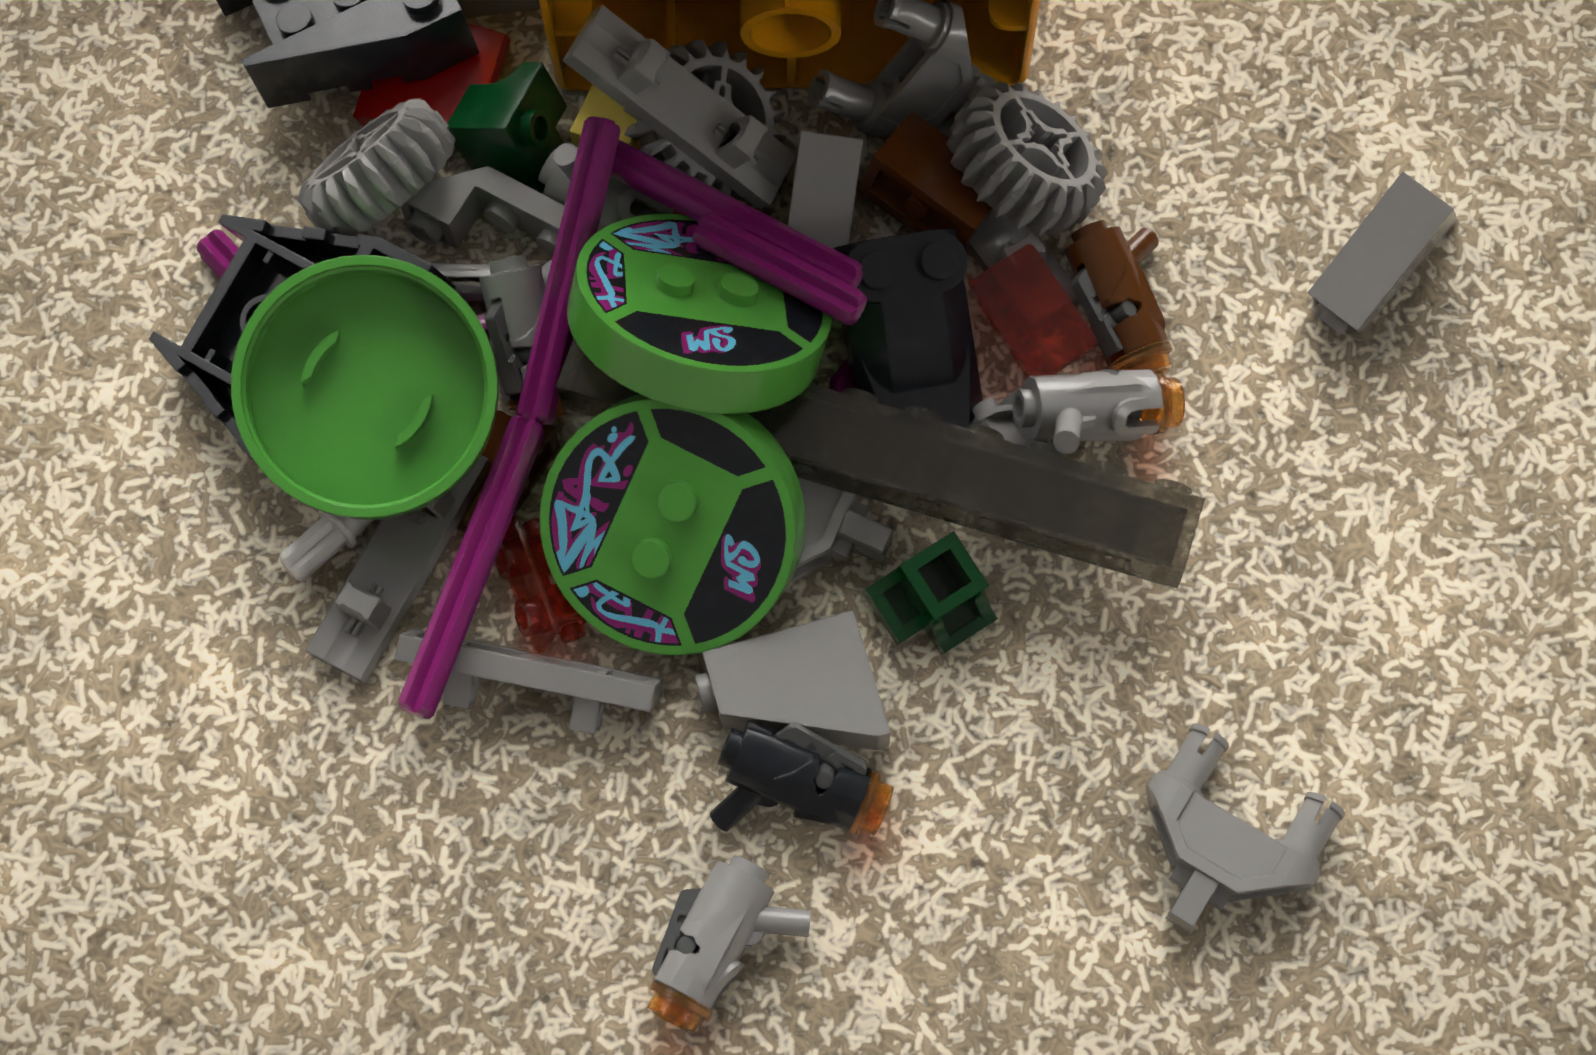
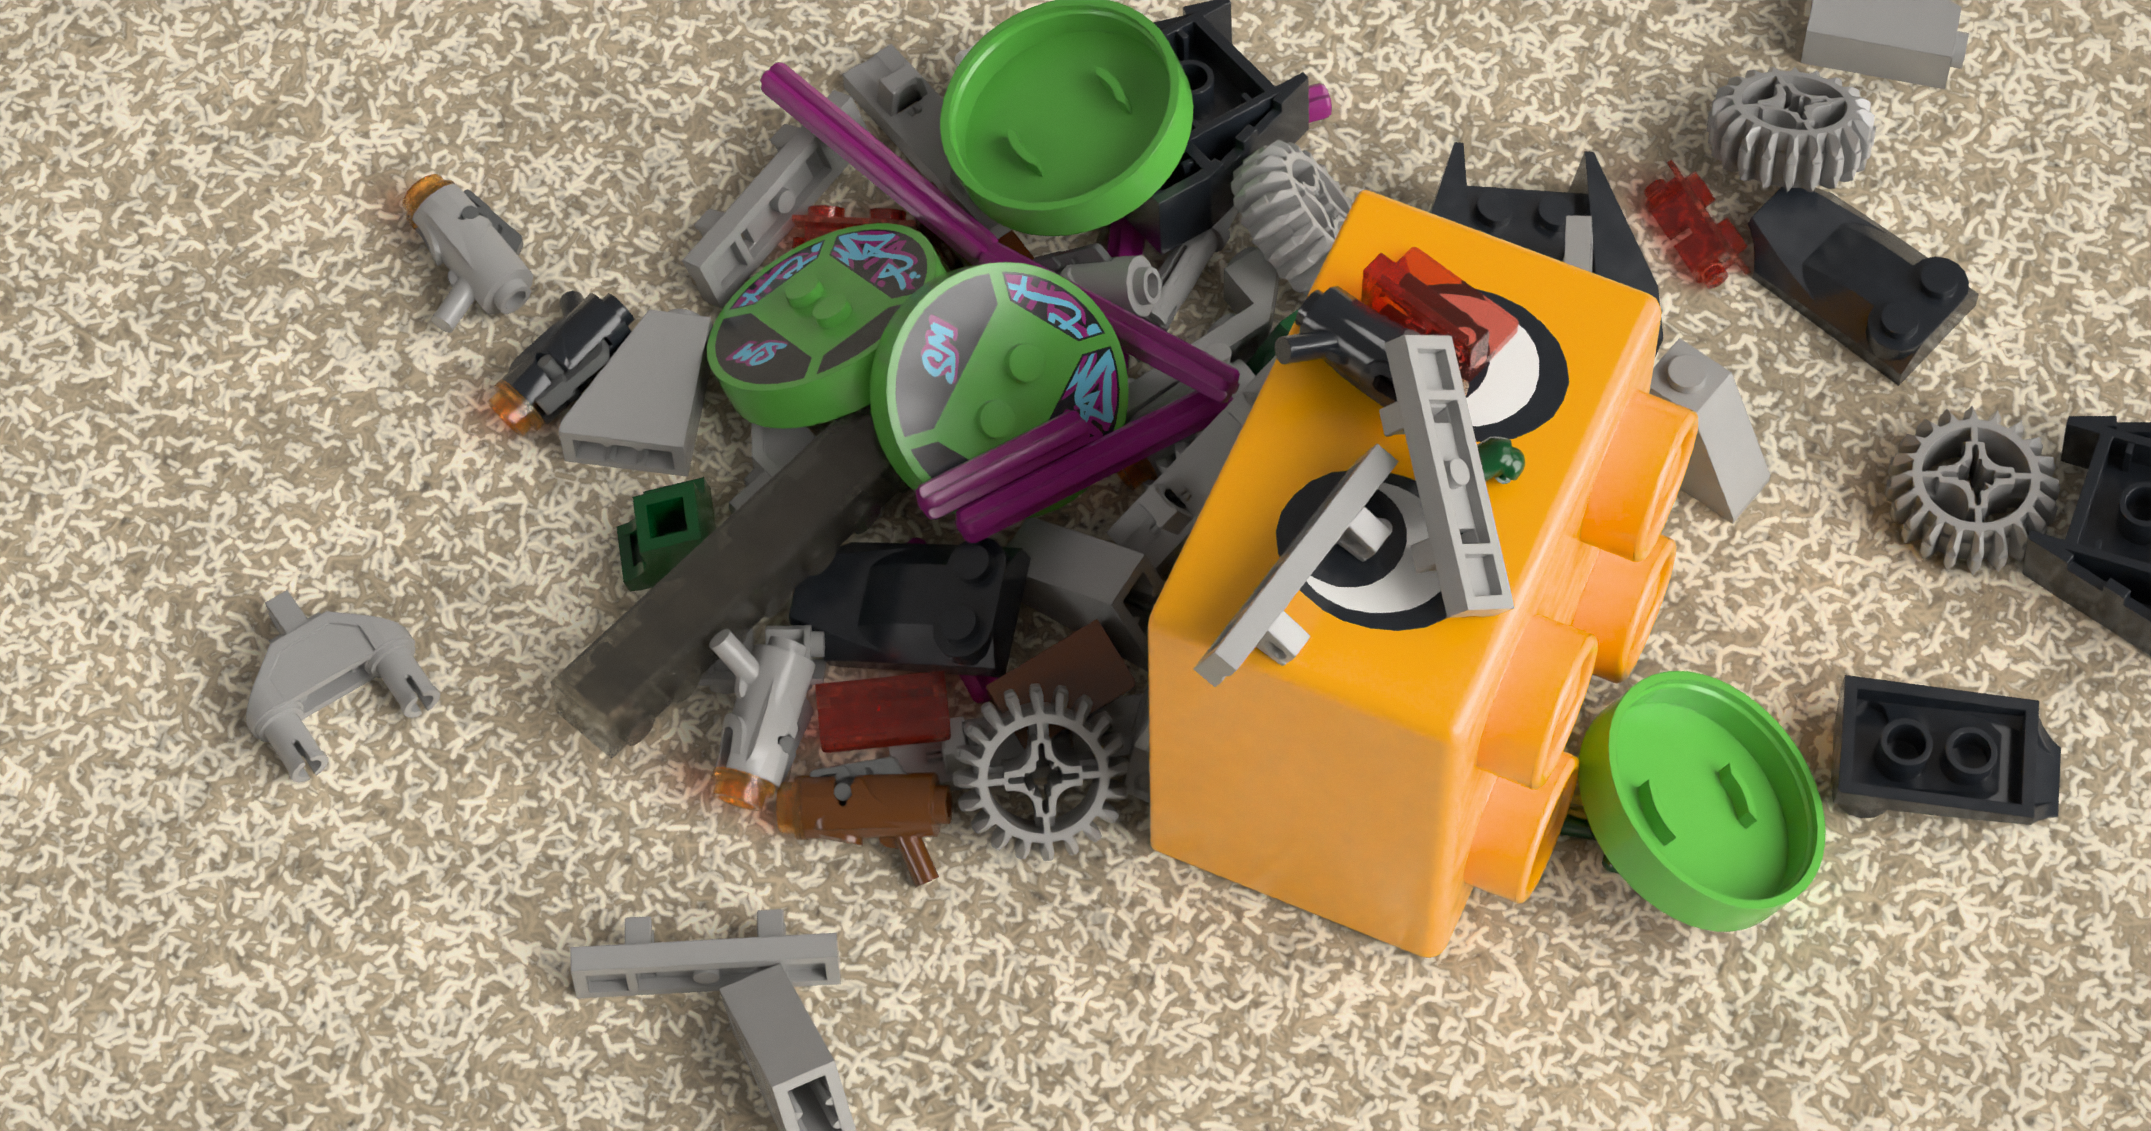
camera: 115 degrees right, 10 degrees down
(1356, 412) = (701, 965): none -> light grey hinge

